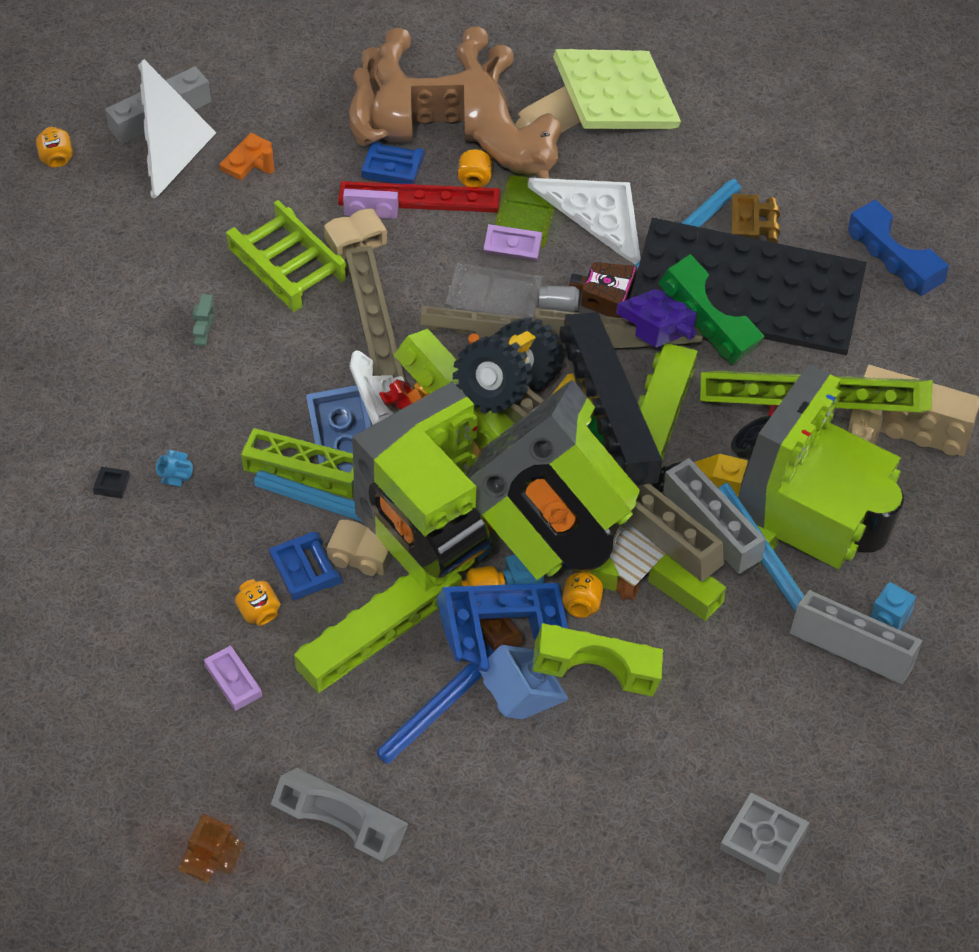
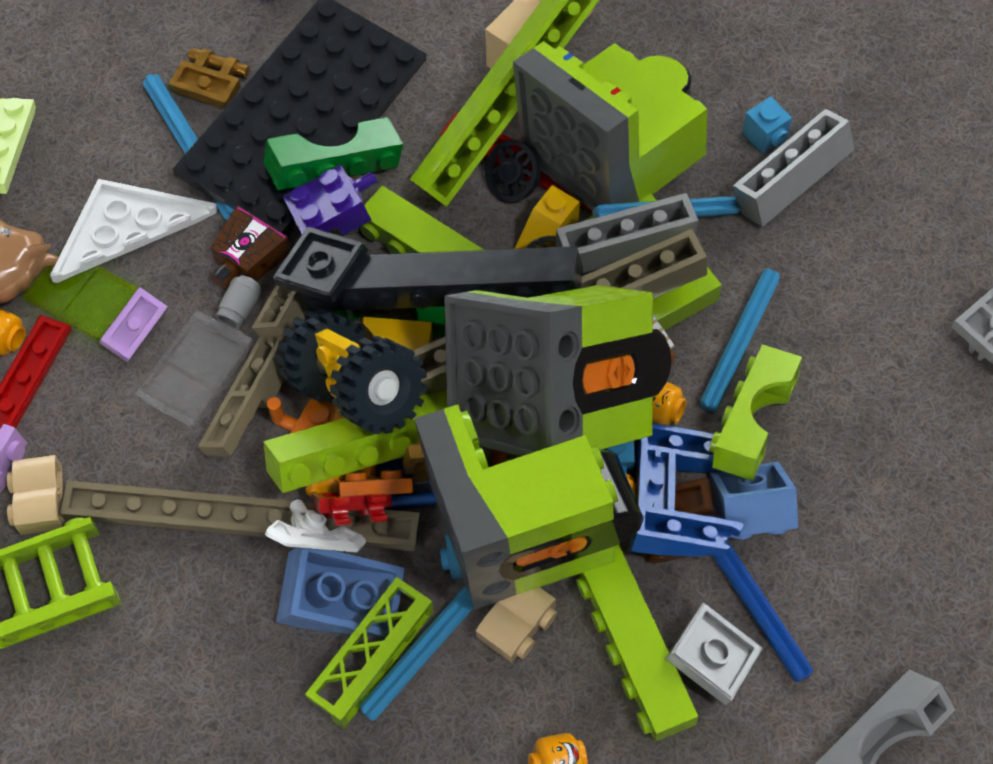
camera: 70 degrees left, 10 degrees up
(203, 316) = (86, 713): sand green plate -> none
(296, 569) = (519, 702): blue plate -> none
(375, 682) = (714, 653): none -> light grey tile
(591, 318) = (320, 264): none -> black tile
(679, 643) = (739, 341): none -> dark azure axle

